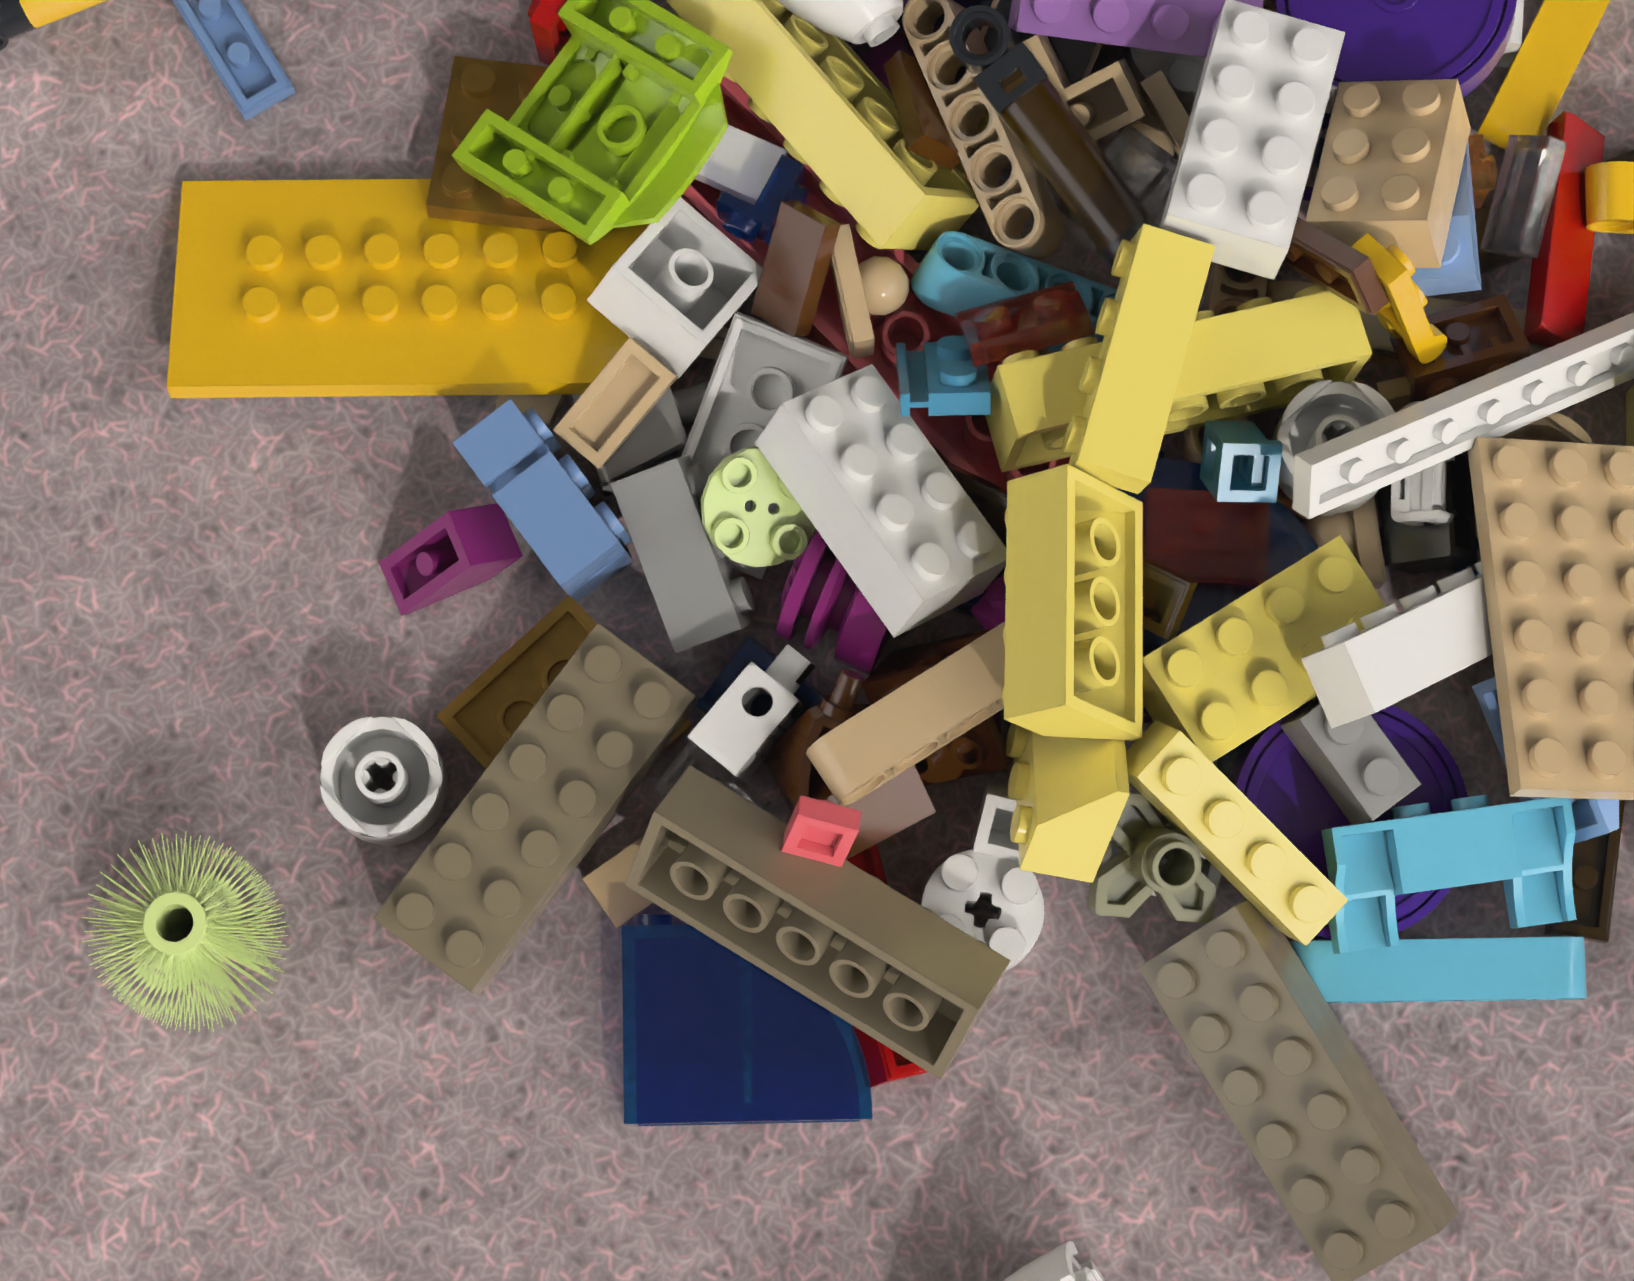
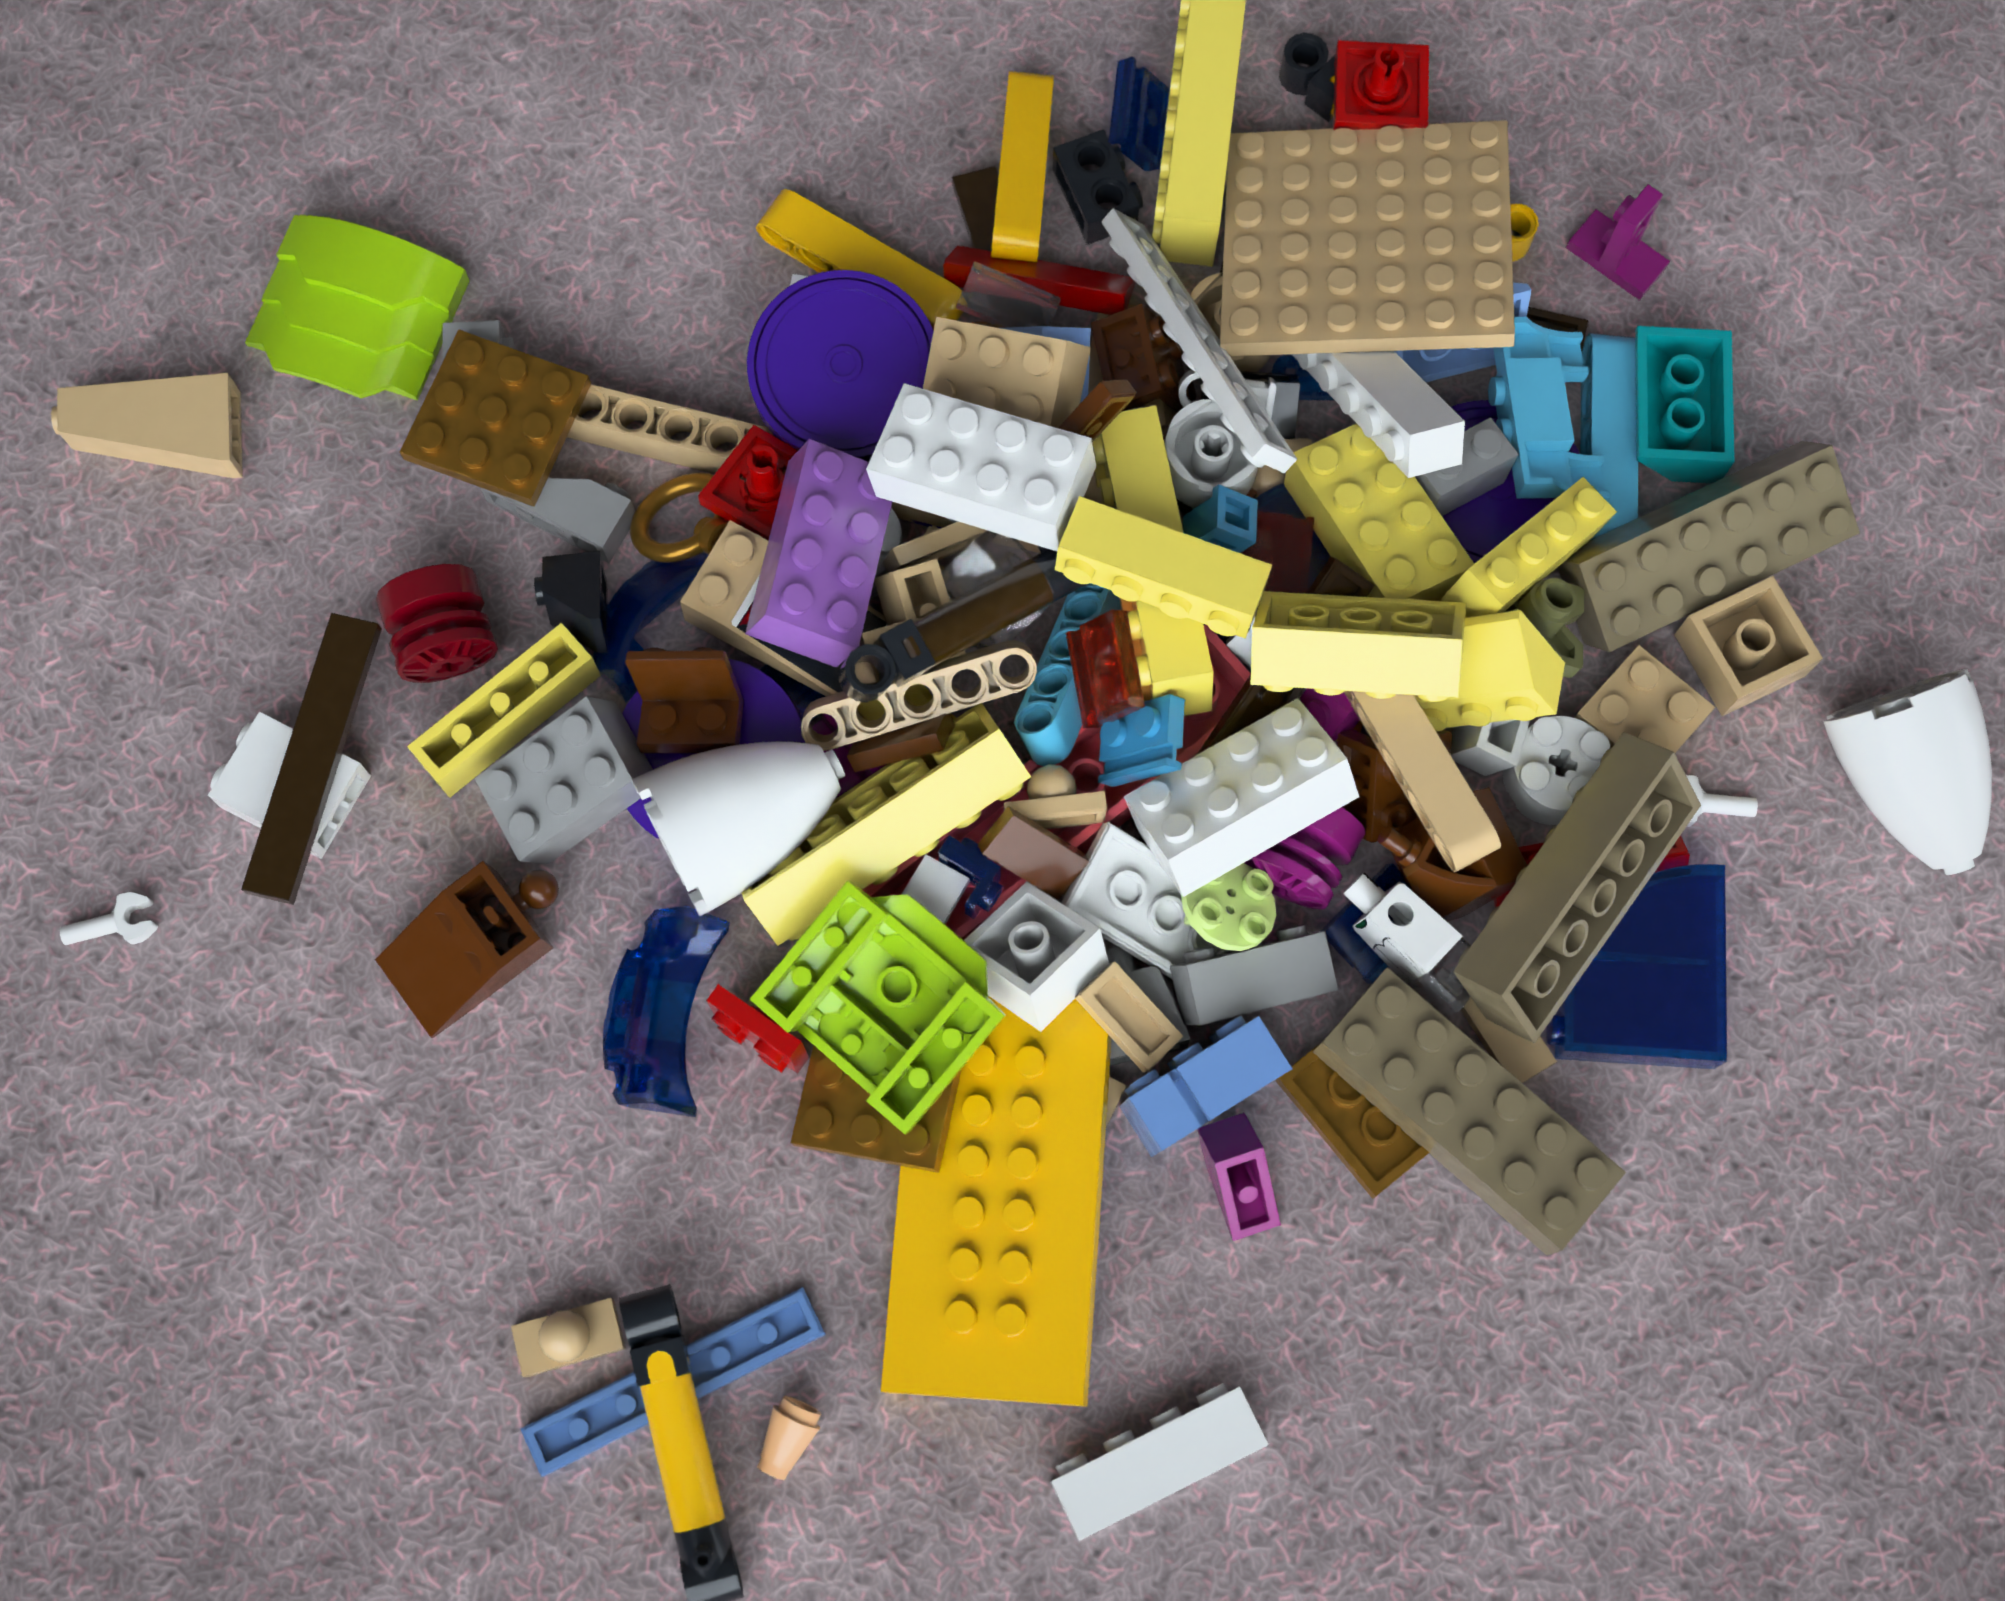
camera: 85 degrees left, 5 degrees down
(118, 487) = (1159, 1462): none -> white brick
(128, 86) = (788, 1435): none -> light nougat cone
(205, 947) = (1584, 1414): yellowish green piece -> none
(388, 746) = (1461, 1245): white brick -> none
(821, 831) = (1520, 863): coral plate -> none
(964, 1112) = (1721, 803): none -> white bar
(1060, 1015) = (1646, 703): none -> tan brick
(1169, 1148) = (1747, 645): none -> tan brick
(1404, 313) = (1107, 370): yellow plate -> none
(1495, 1053) = (1684, 402): none -> teal slope

